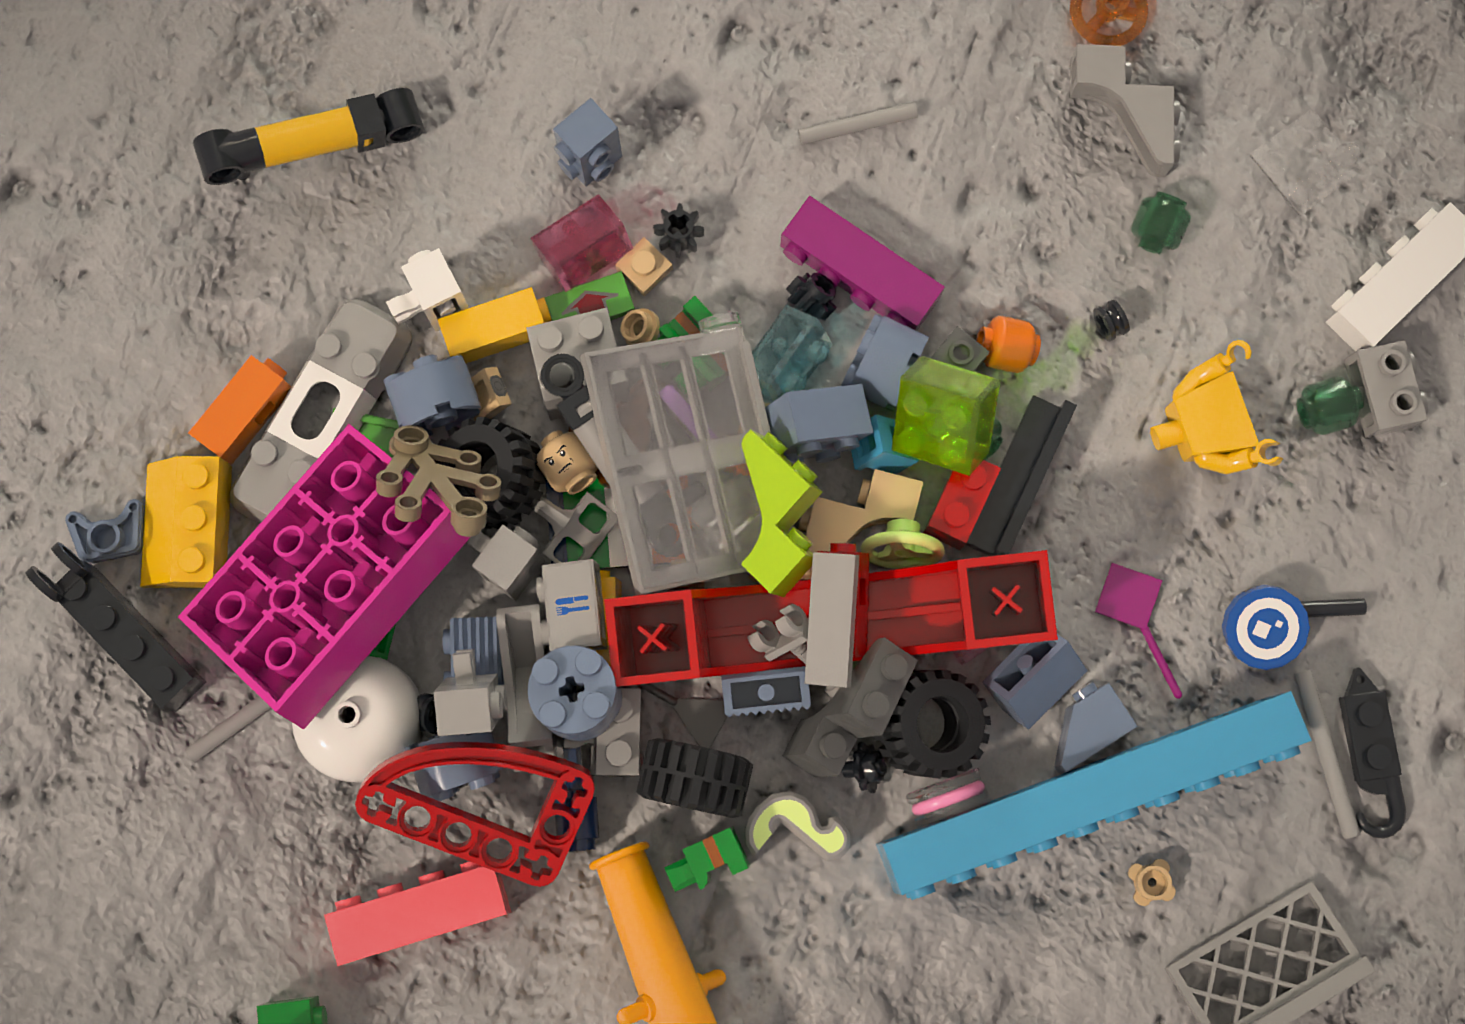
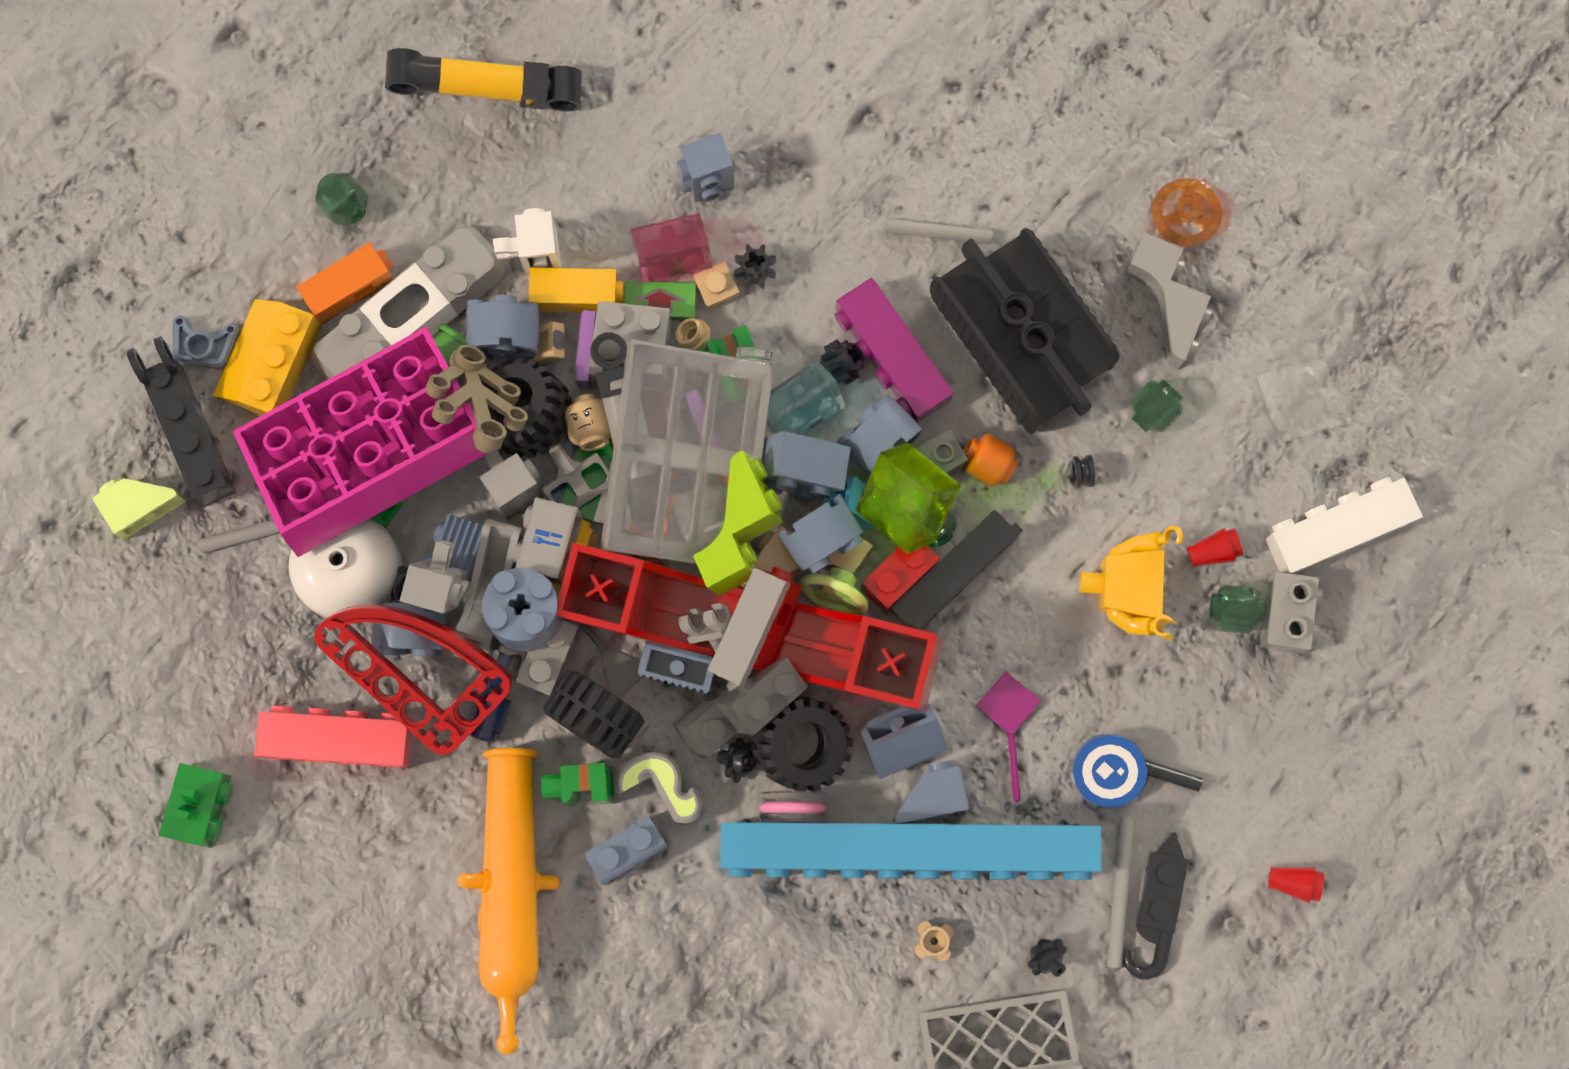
camera: 20 degrees right, 0 degrees up
(98, 738) = (134, 504): none -> yellowish green slope
(202, 320) = (341, 198): none -> clear green head
(531, 385) = (587, 325): none -> medium lavender tile
(785, 912) = (626, 850): none -> sand blue brick
(869, 489) = (822, 534): none -> sand blue brick
(974, 134) = (1029, 379): none -> black piece
(1279, 853) = (1047, 957): none -> black plant
(1283, 349) = (1216, 549): none -> red cone

